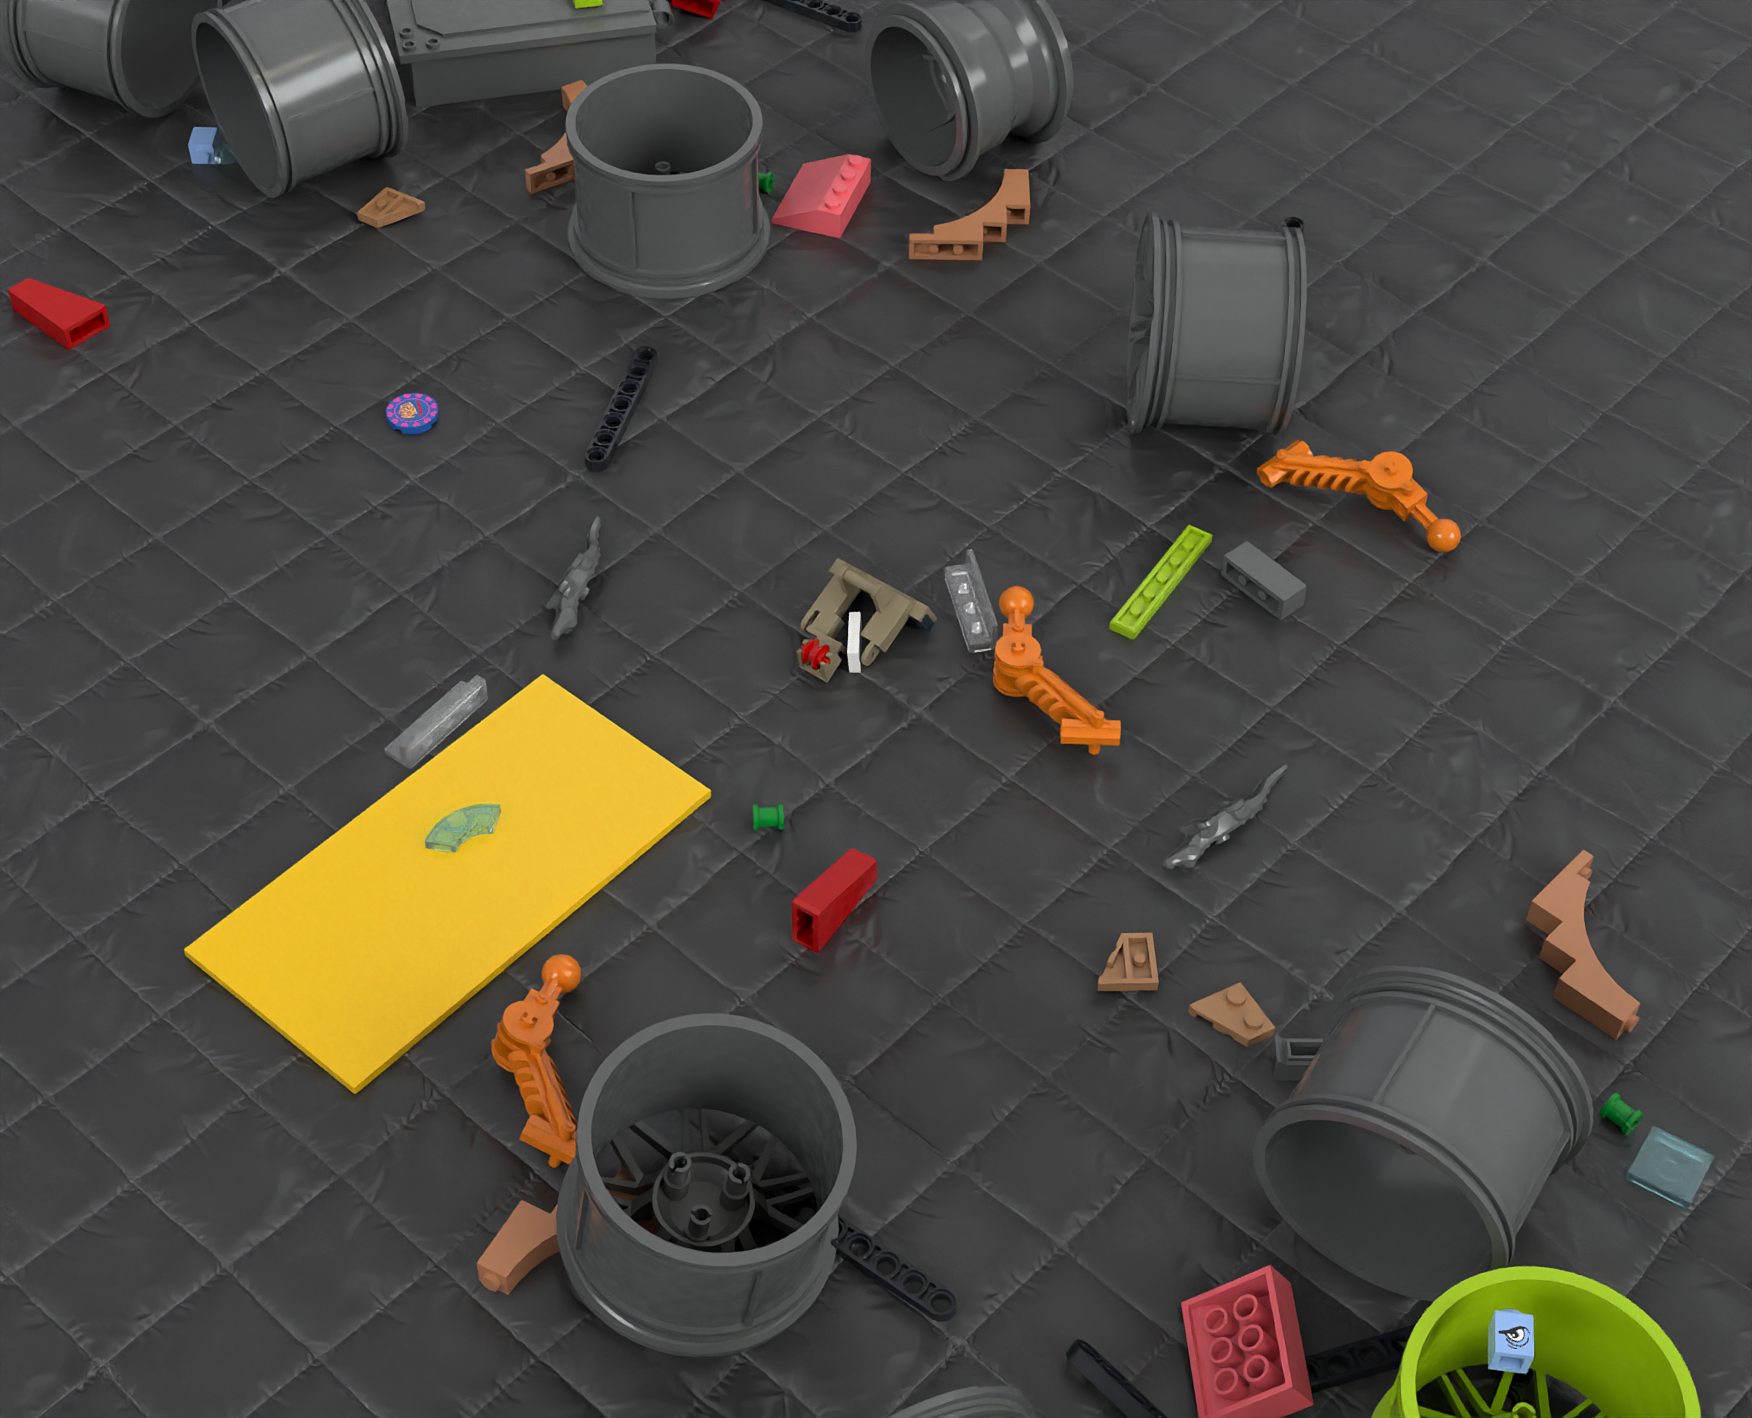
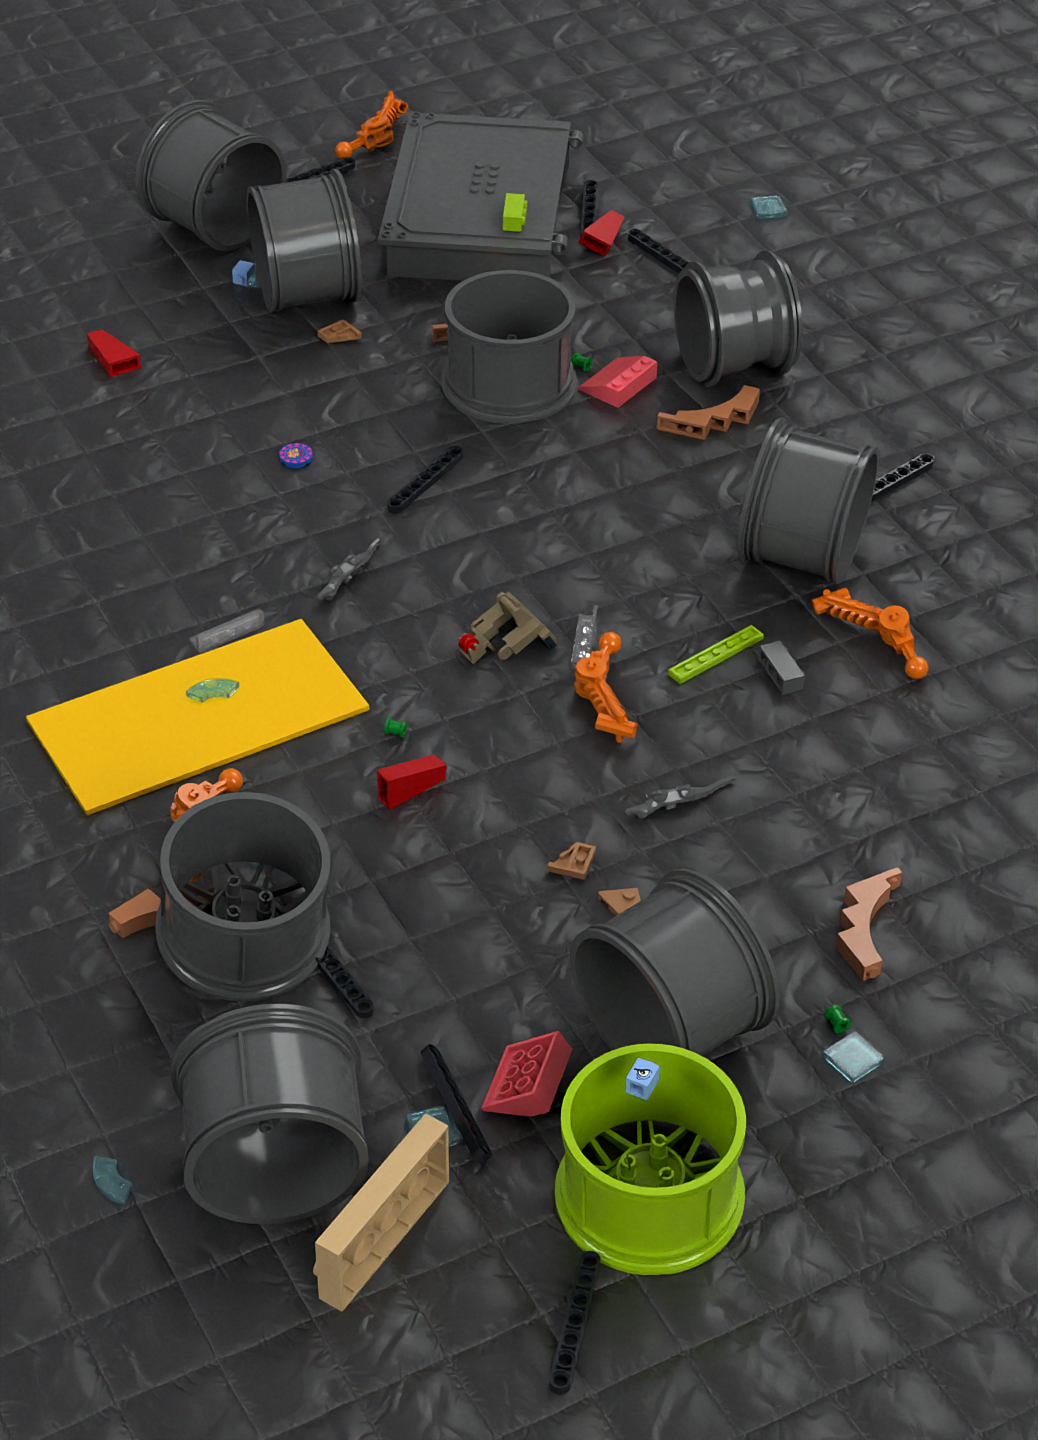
camera: 20 degrees right, 5 degrees down
(854, 647) = (498, 643): white tile -> none

